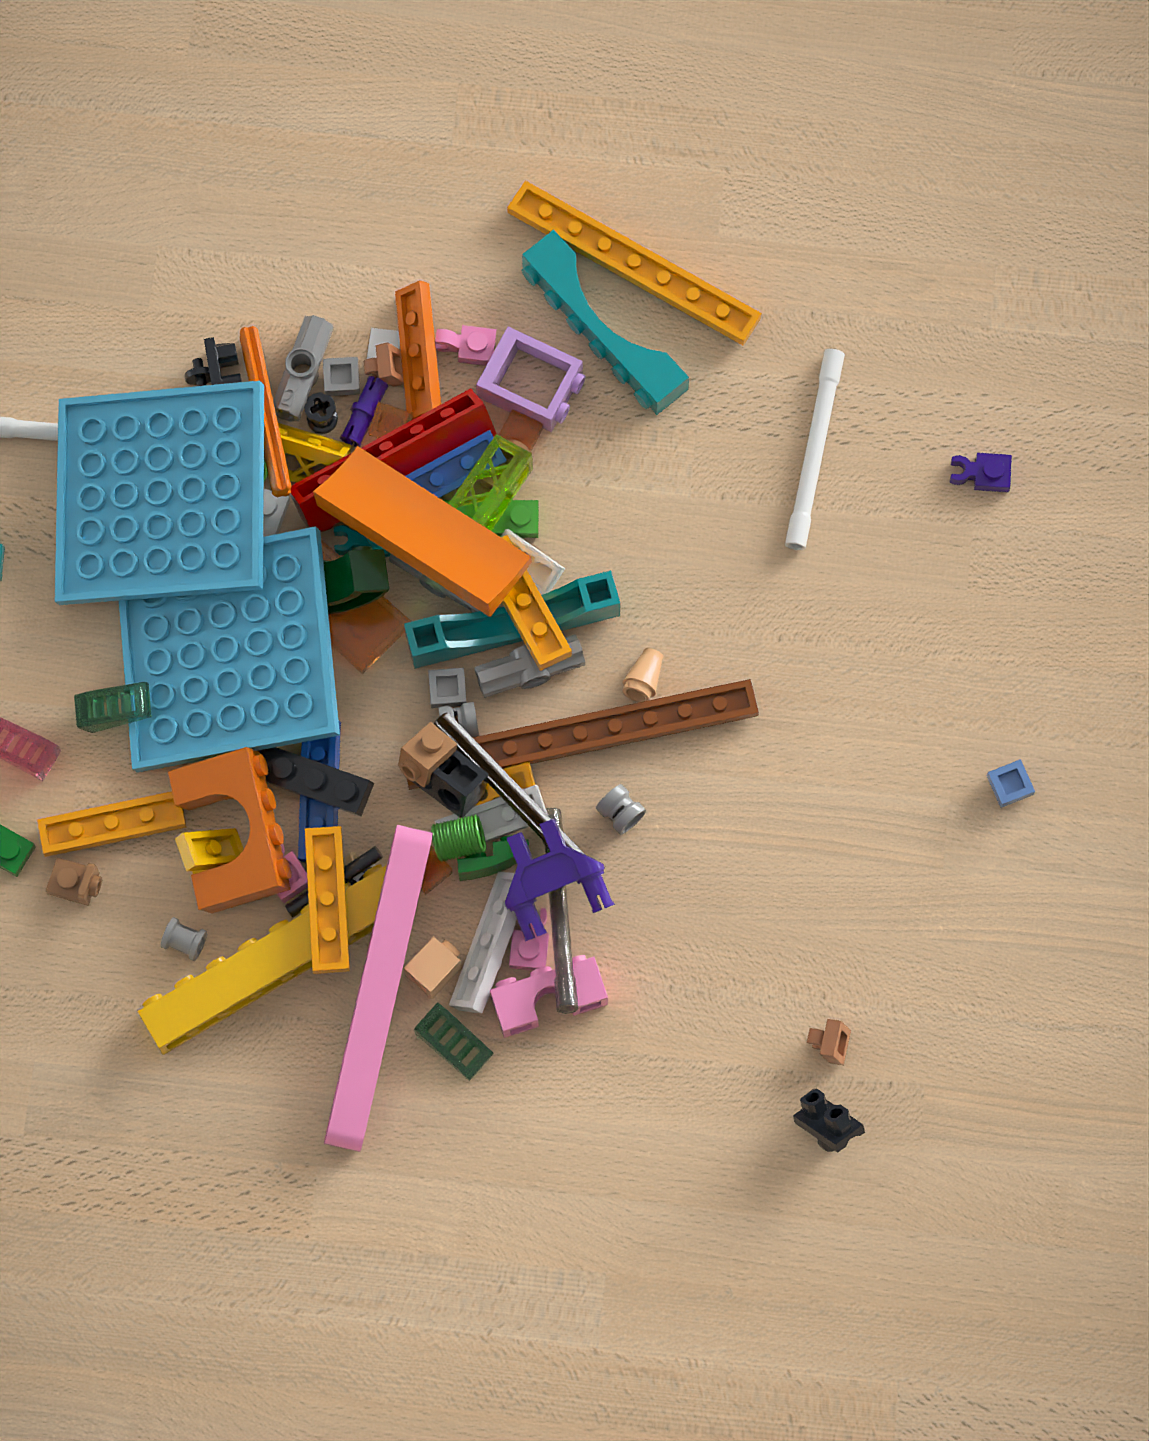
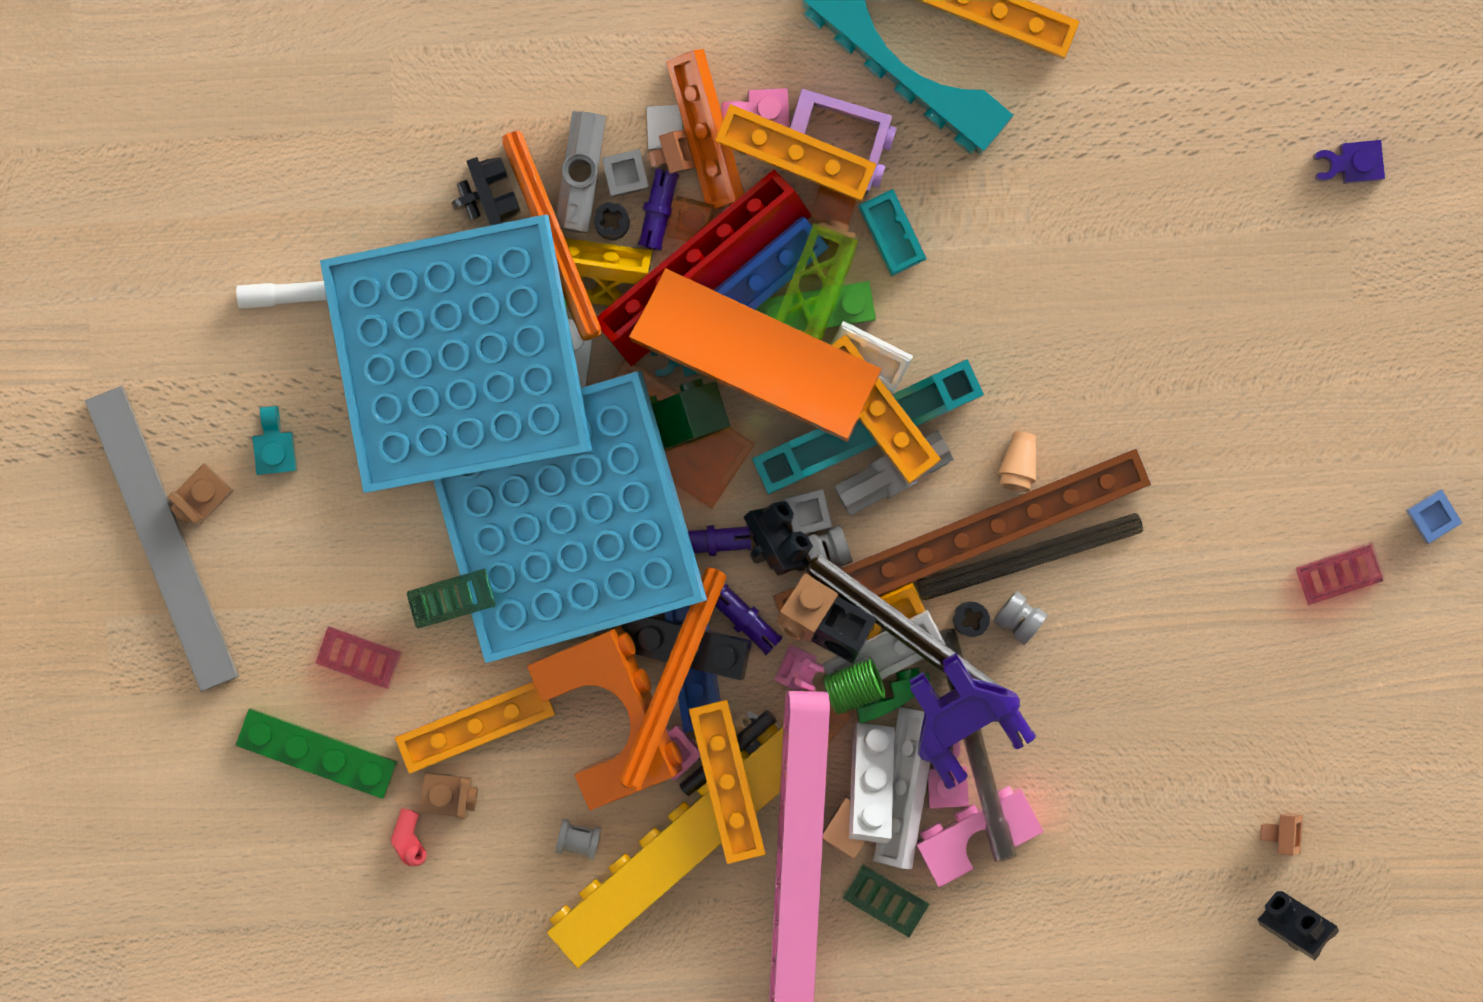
camera: 10 degrees left, 15 degrees up
(27, 915) = (405, 841): none -> coral arm
(208, 848) = (589, 740): yellow slope -> none
(293, 800) = (671, 682): none -> orange axle
(364, 699) = (722, 539): none -> dark purple pin
(374, 771) = (747, 620): none -> dark purple pin
(412, 706) = (774, 540): none -> black hips
(413, 816) = (798, 669): none -> bright pink plate
(459, 928) = (871, 783): none -> white plate
(491, 374) = (795, 152): none -> light orange plate
(566, 463) = (892, 232): none -> teal plate
(583, 795) = (983, 622): none -> black bush
(639, 759) = (1030, 556): none -> clear smoke axle
(828, 381) = (1165, 84): white piece -> none
(935, 830) = (1376, 573): none -> clear pink slope

